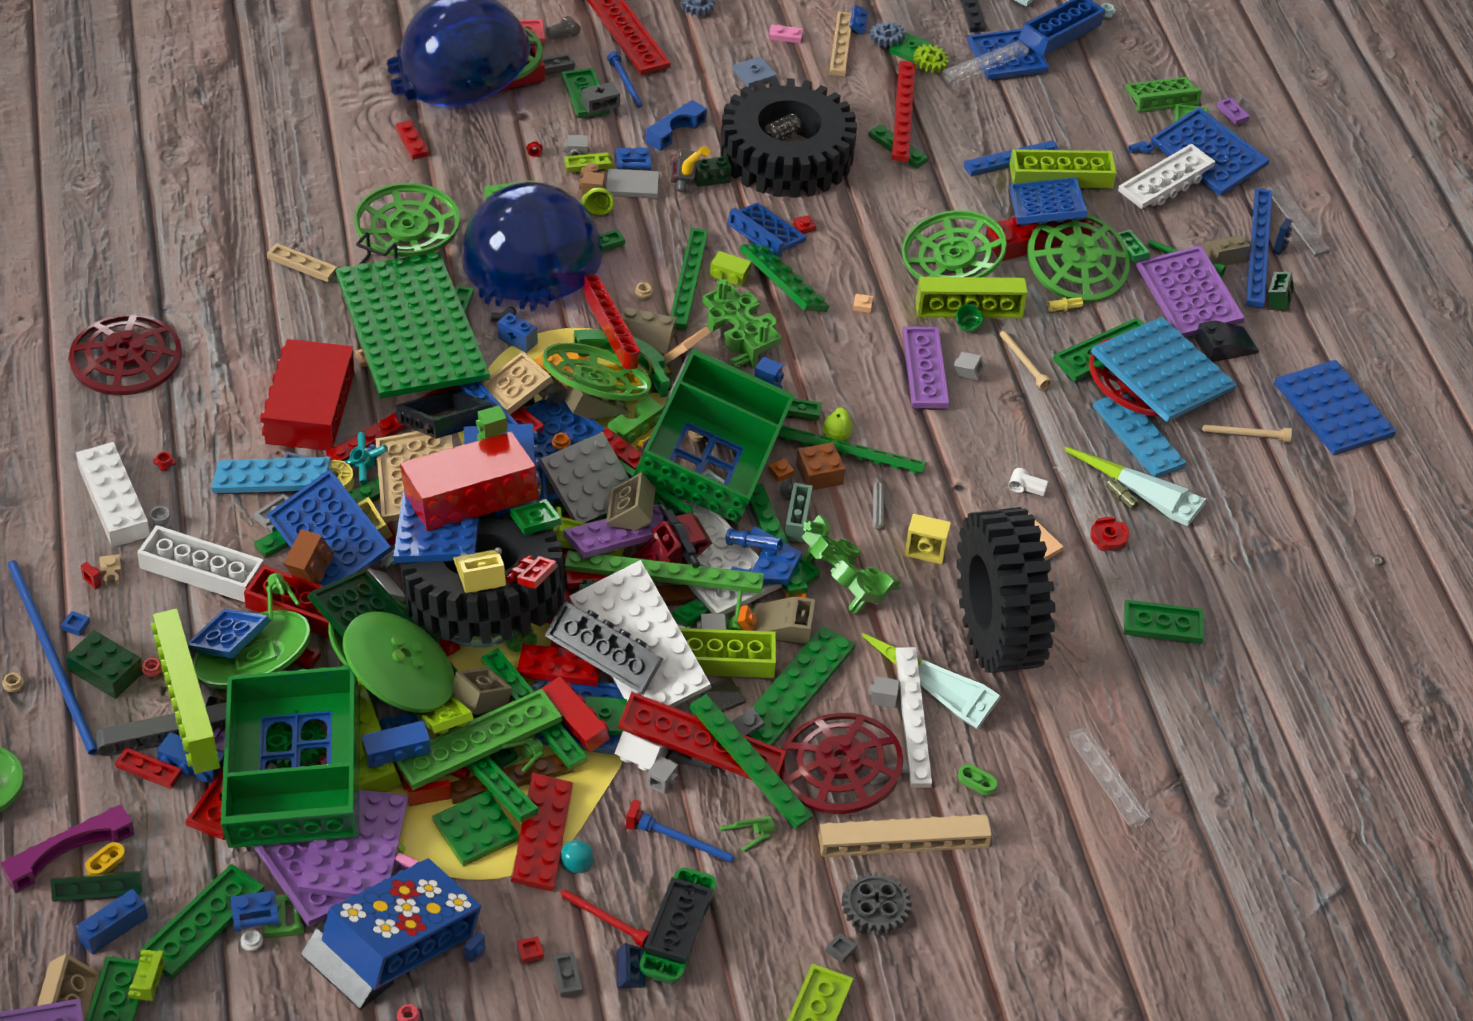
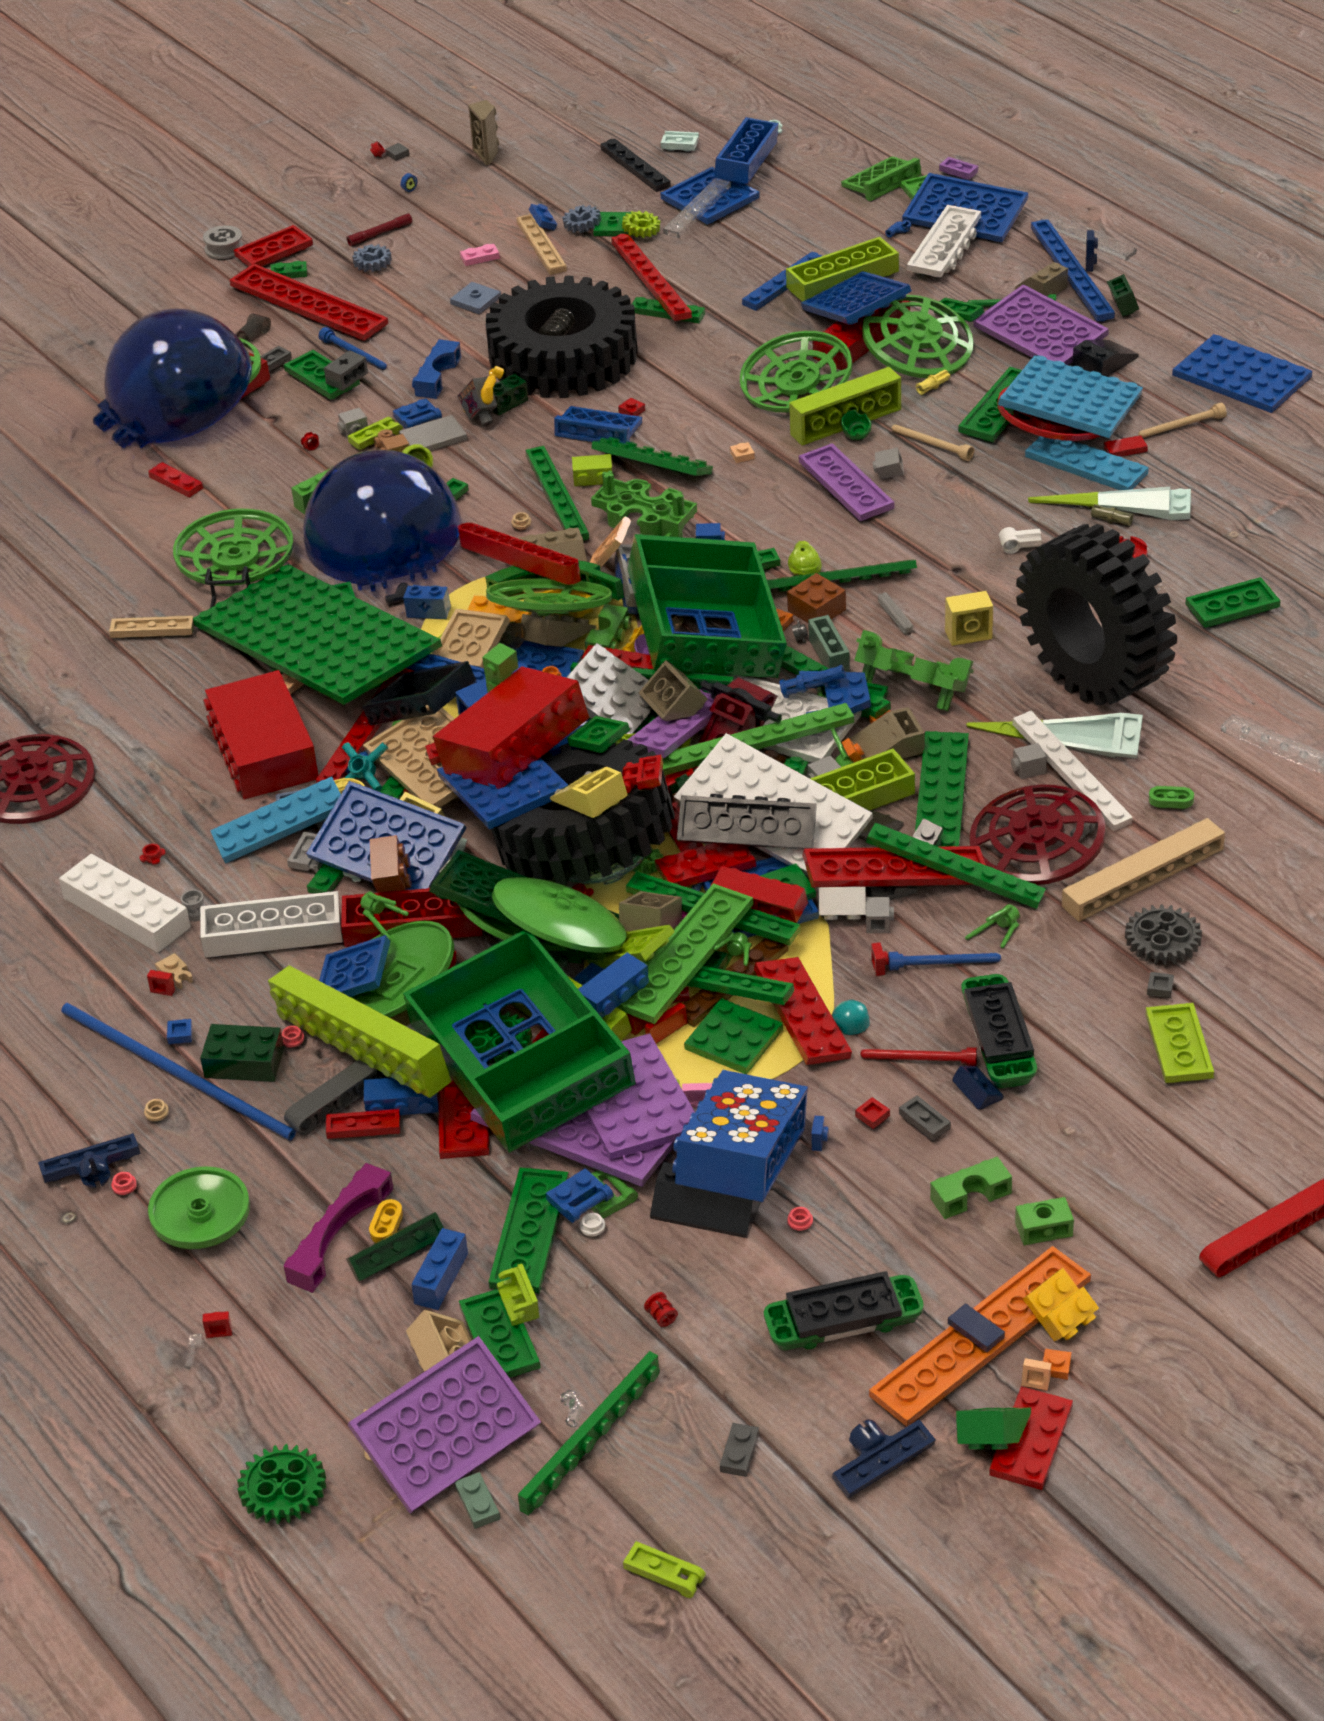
camera: 20 degrees left, 5 degrees down
(1182, 434) = (1126, 446): none -> red tile

